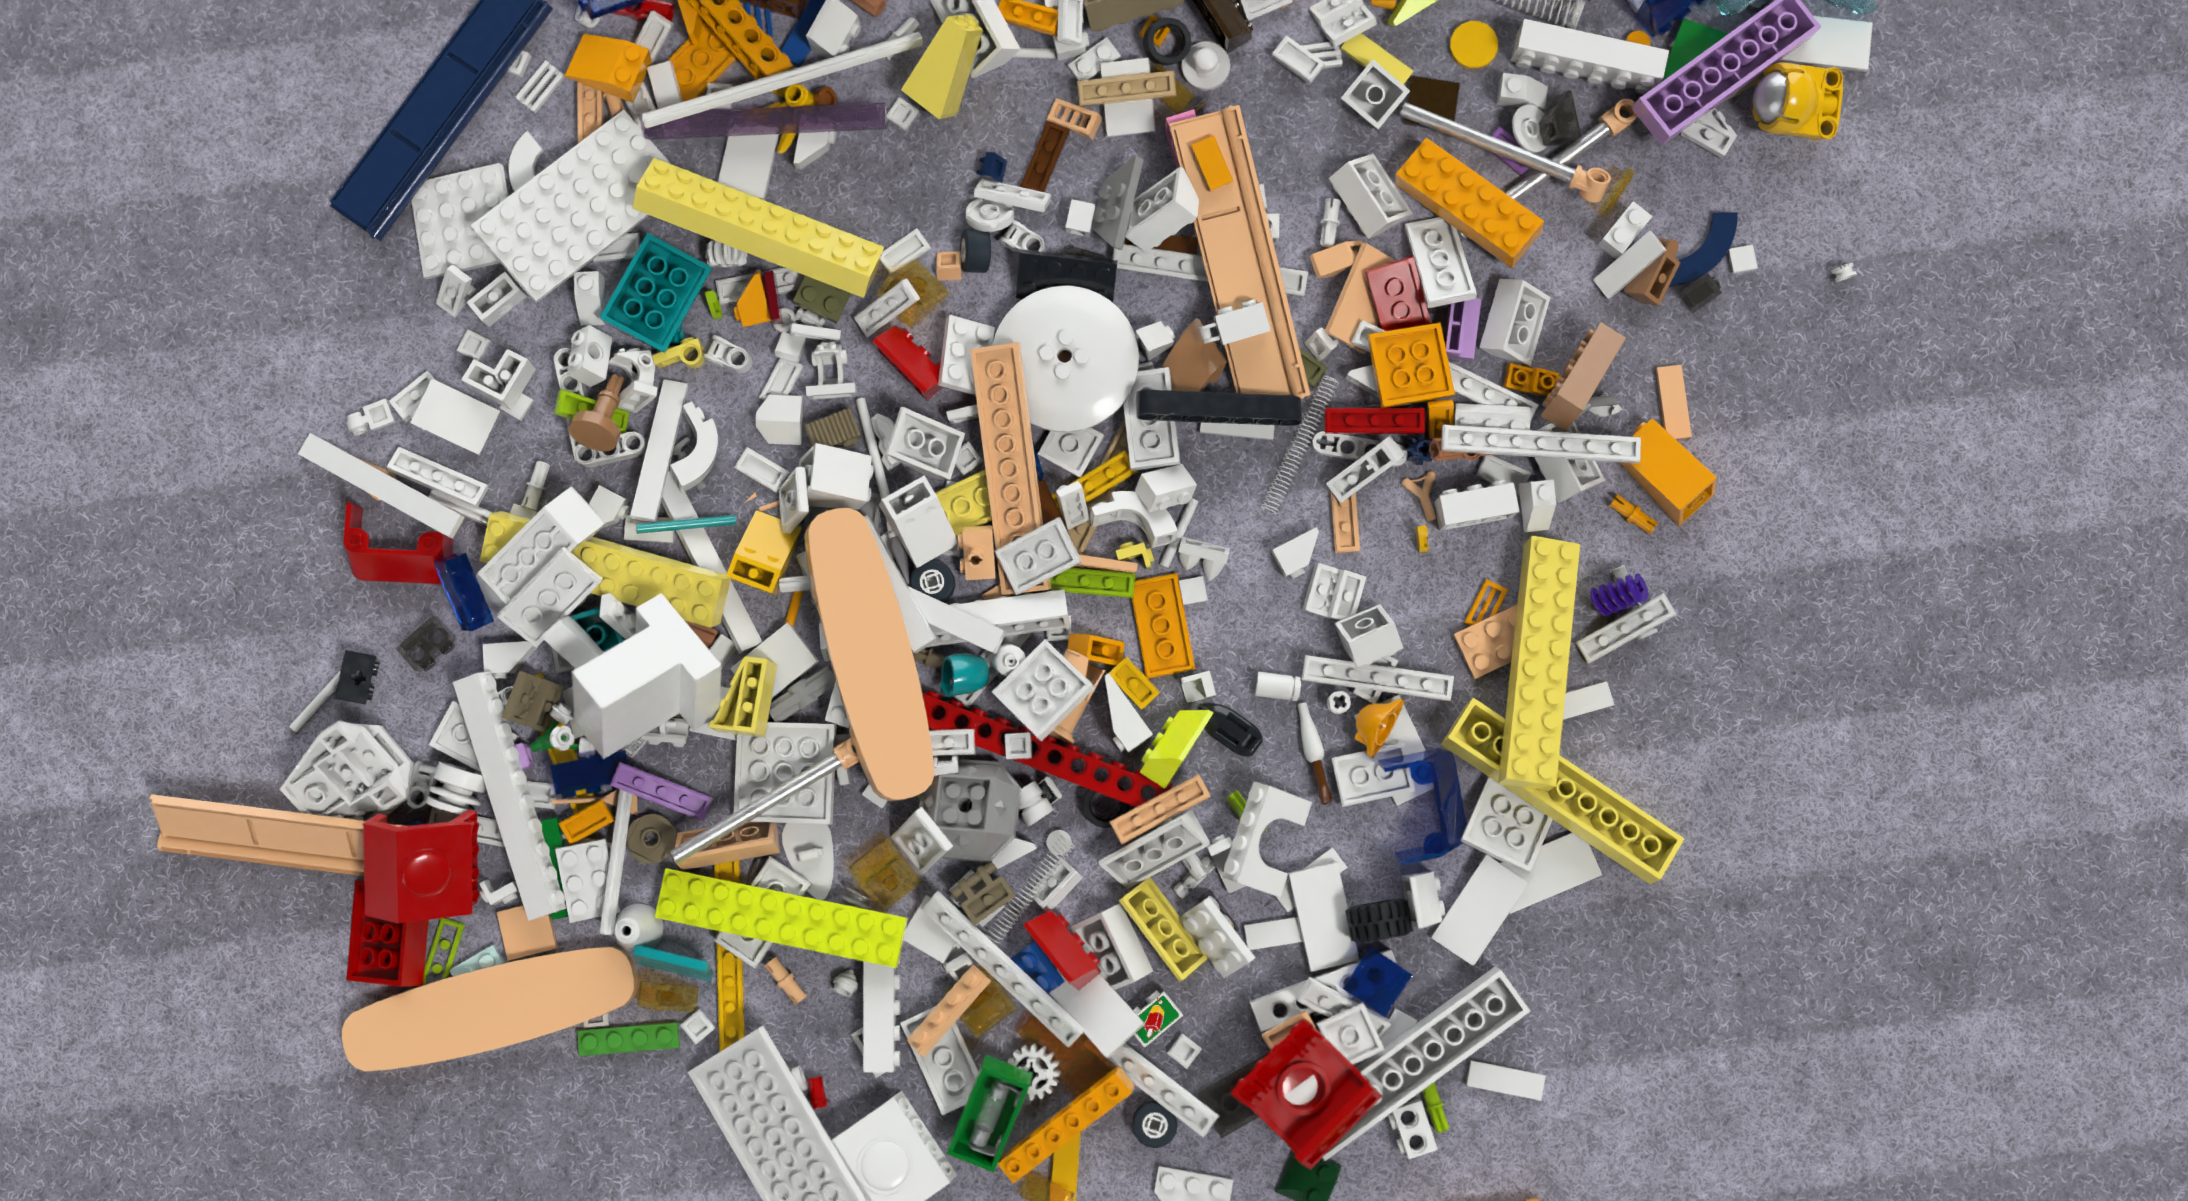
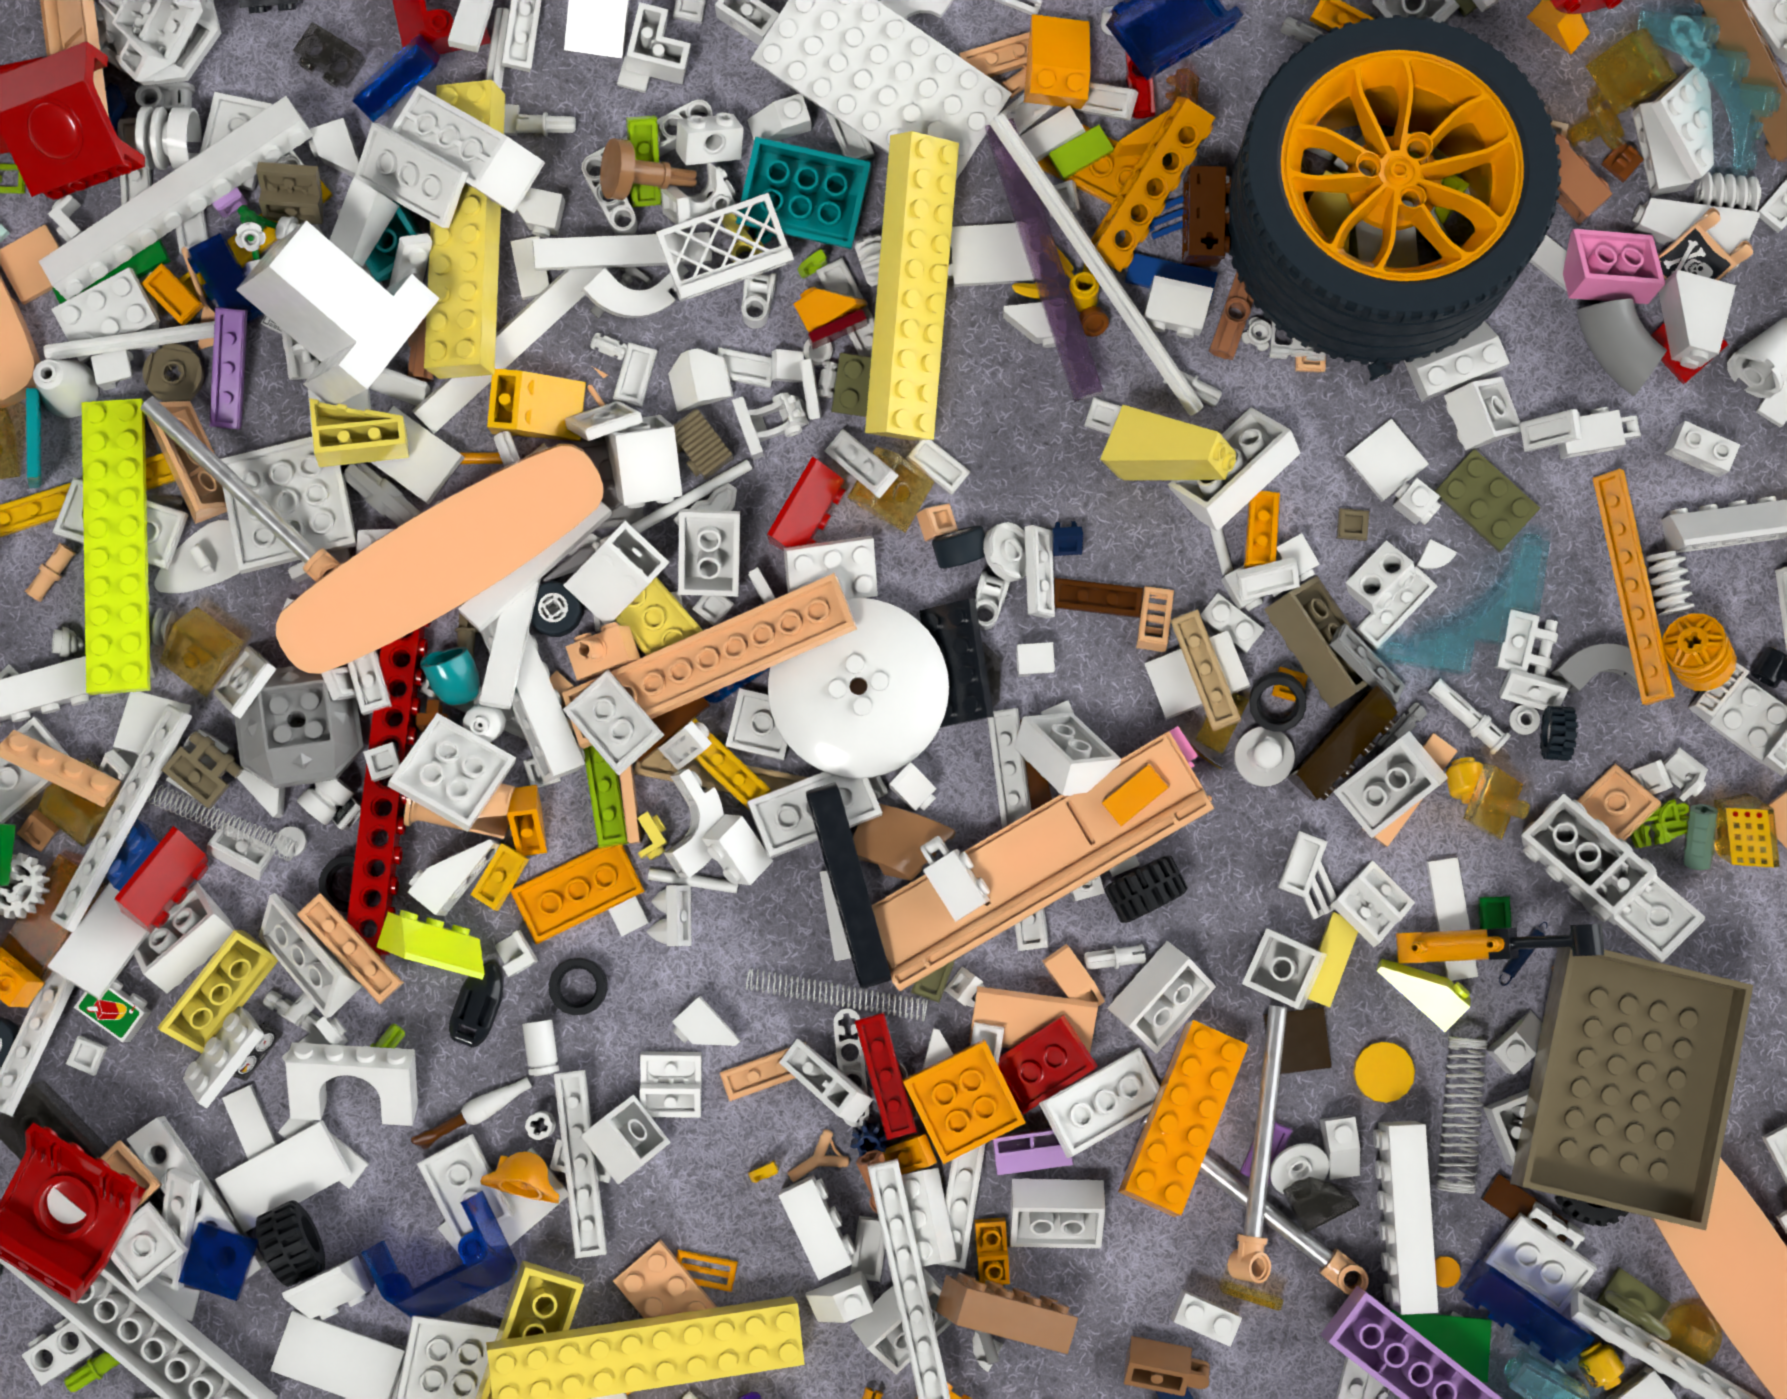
camera: 65 degrees right, 0 degrees up
(633, 885) = (112, 368): none -> white panel
(685, 524) = (543, 306): teal bar -> none
(687, 70) = (1081, 152): none -> lime tile
(704, 365) = (733, 272): none -> white fence
(732, 484) = (608, 346): none -> white piece
(993, 1042) = (38, 830): none -> medium nougat plate
(994, 705) = (432, 709): none -> dark orange tile
(1116, 203) = (1062, 696): light grey wing -> none
(1242, 626) = (555, 988): none -> black tyre
(1285, 181) = (1146, 889): none -> black tyre
(1629, 264) = (1163, 1334): white tile -> none

